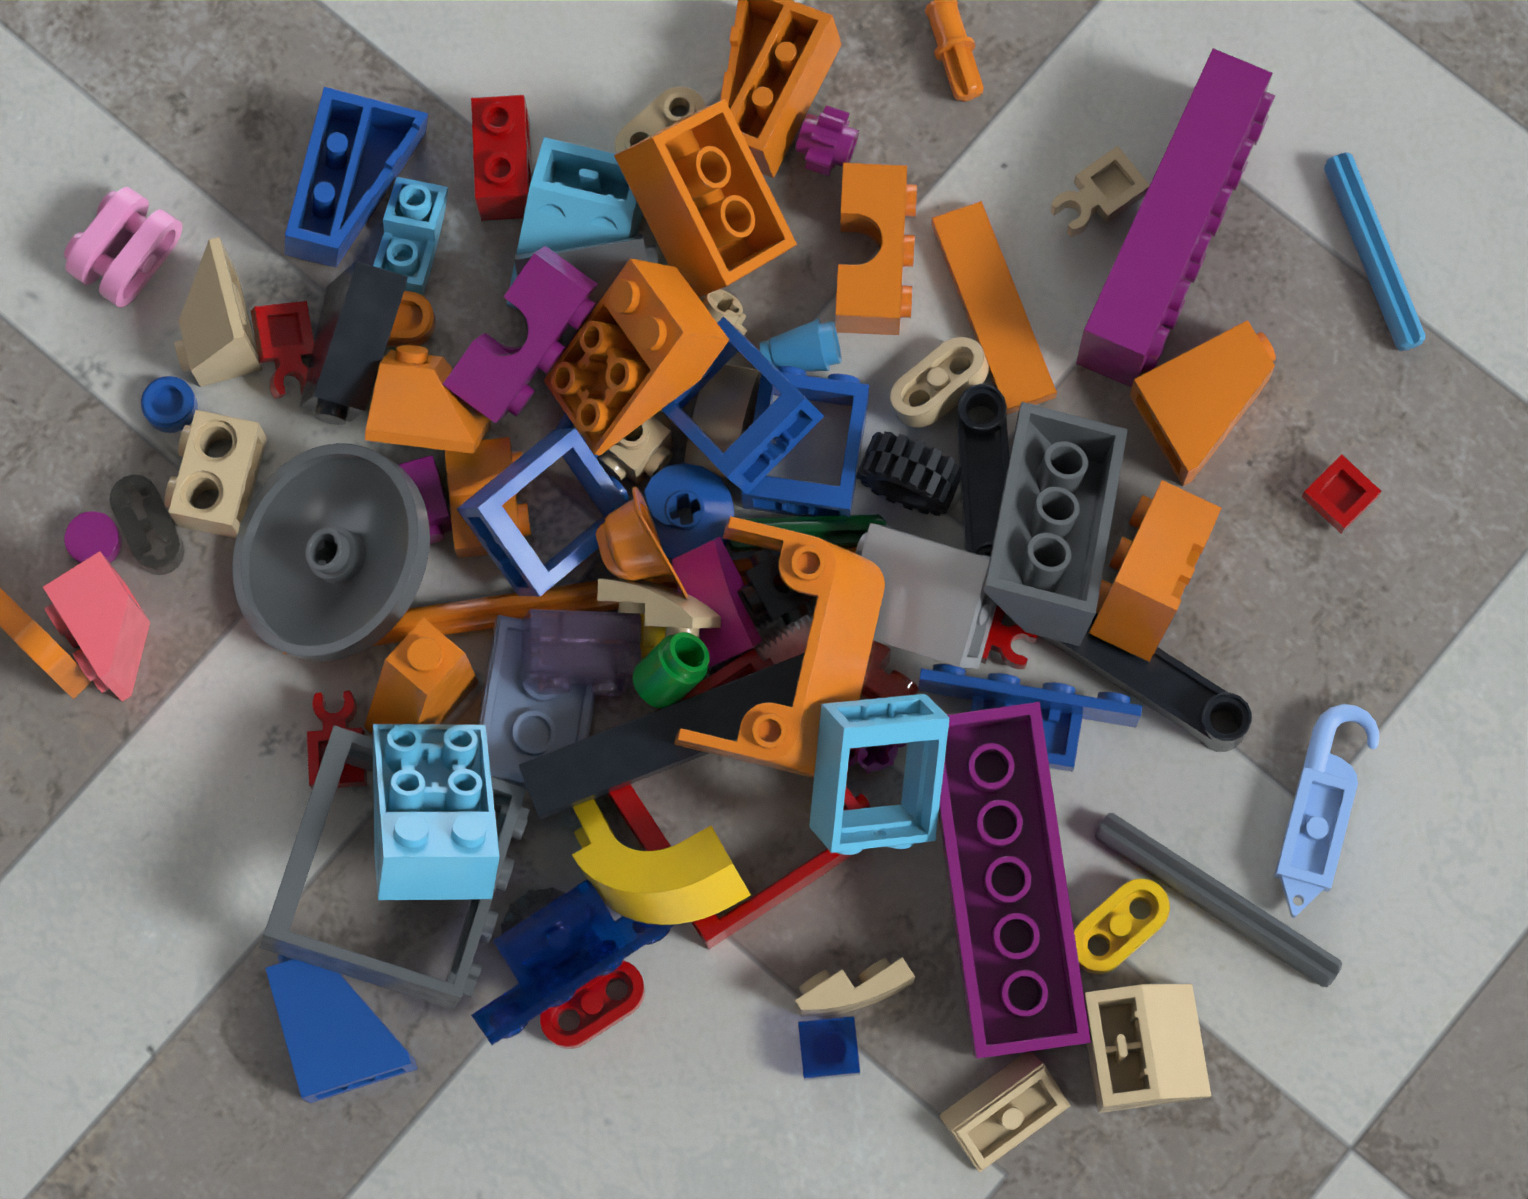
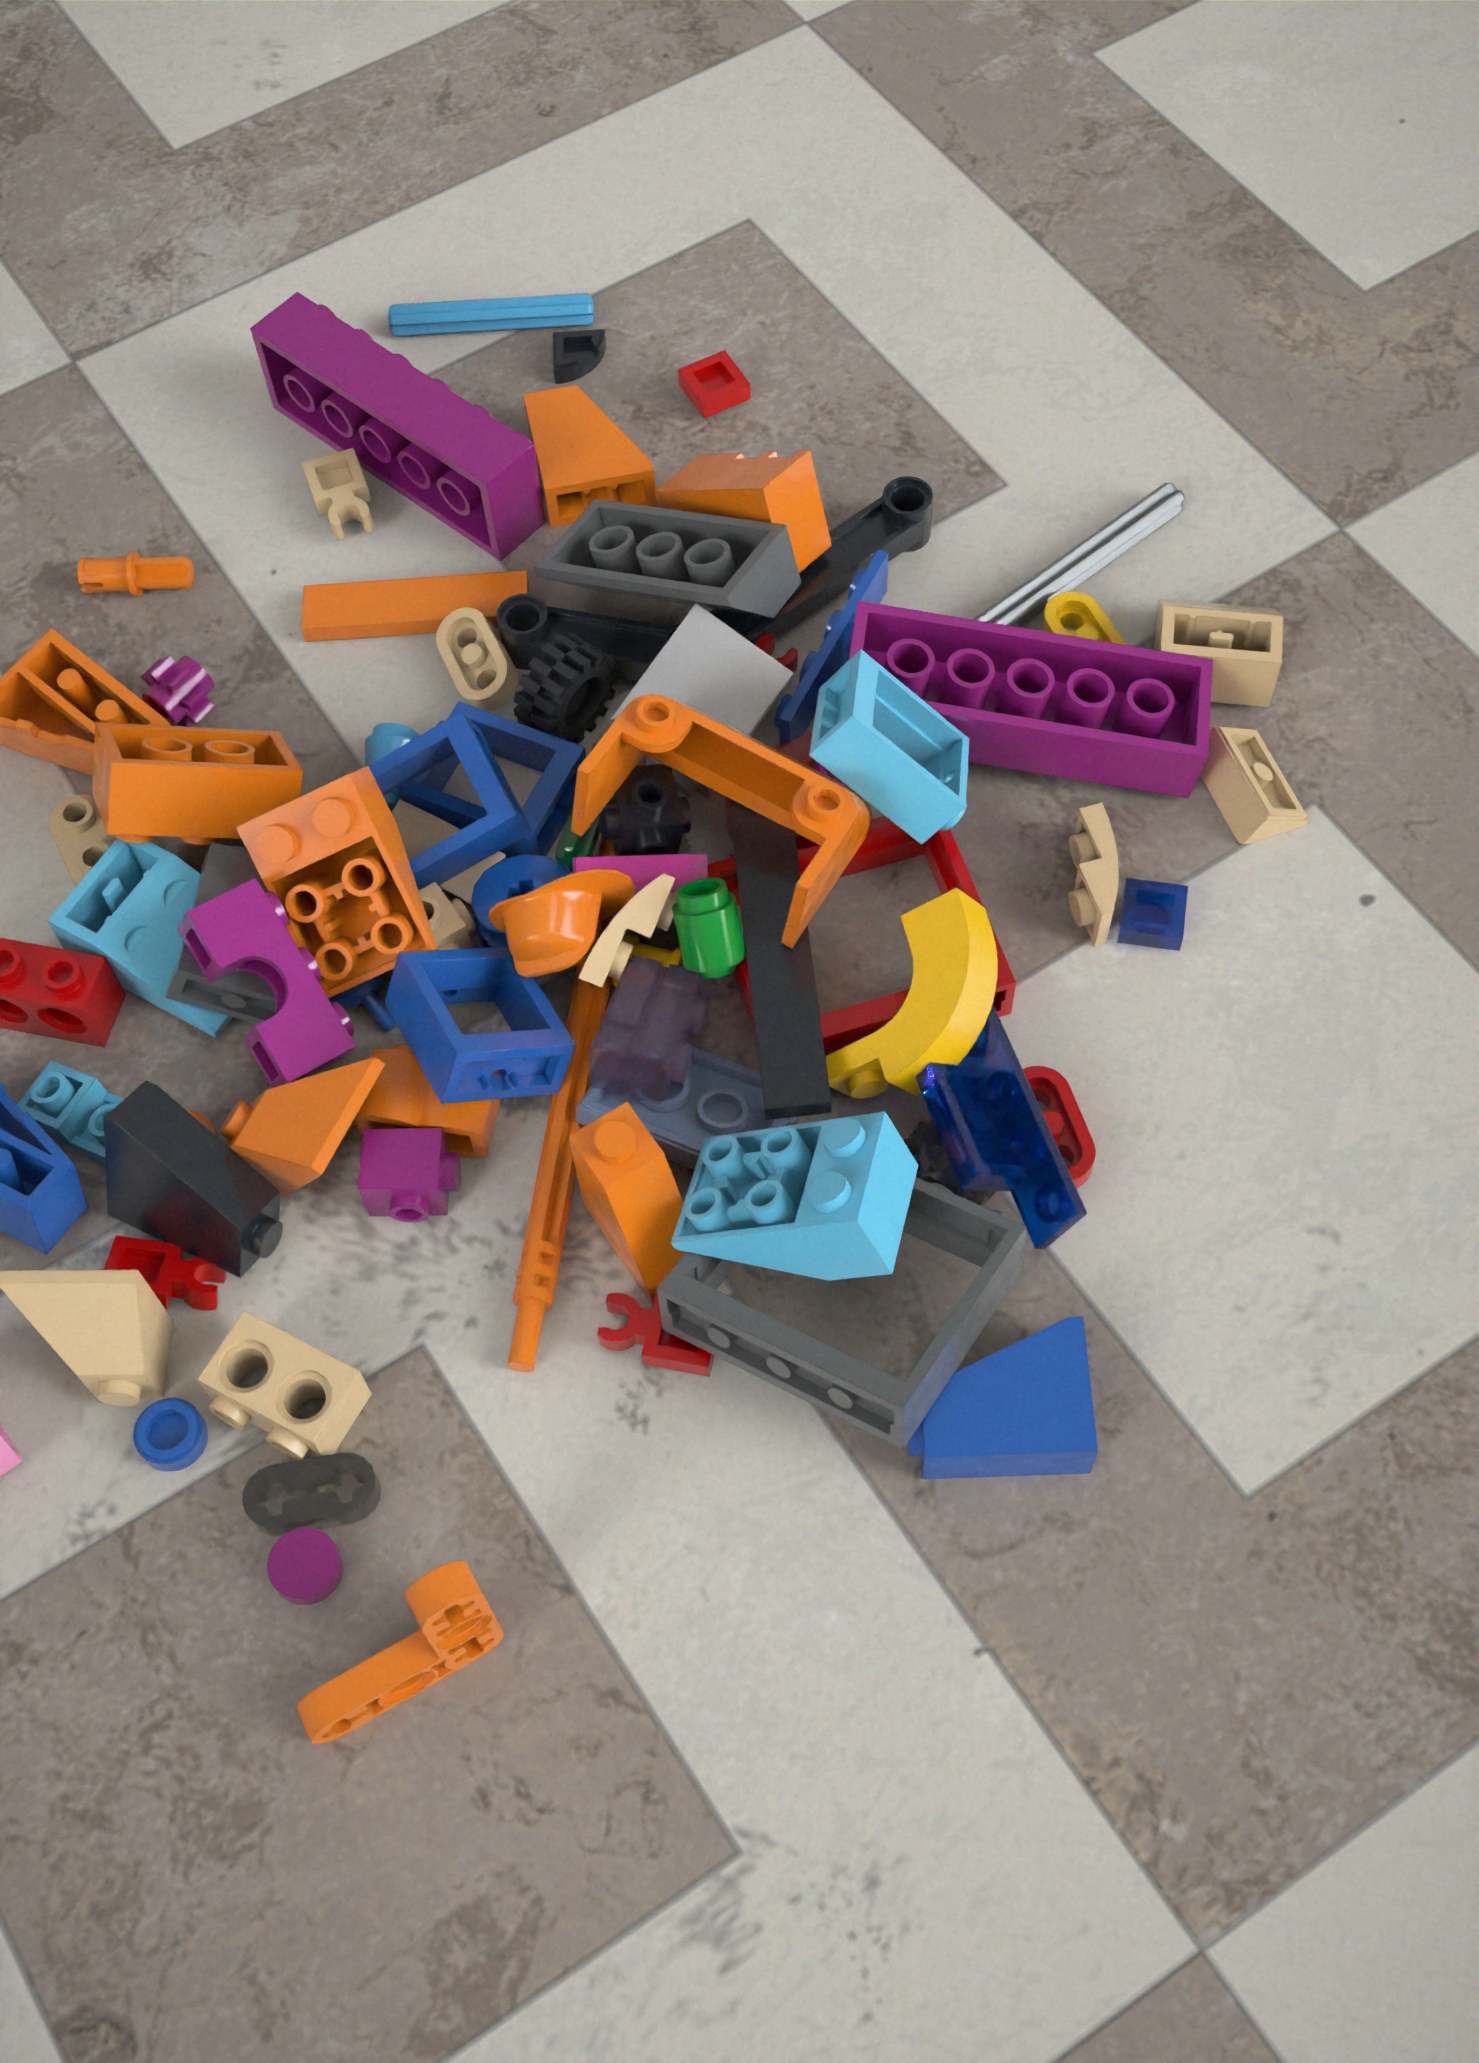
camera: 75 degrees left, 15 degrees down
(102, 618) = (412, 1532): coral slope -> none
(331, 552) = (436, 1265): dark grey dish -> none
(872, 293) = (271, 665): orange arch -> none
(1320, 810) = (1017, 467): light blue plate -> none
(1350, 349) = (577, 353): none -> black tile

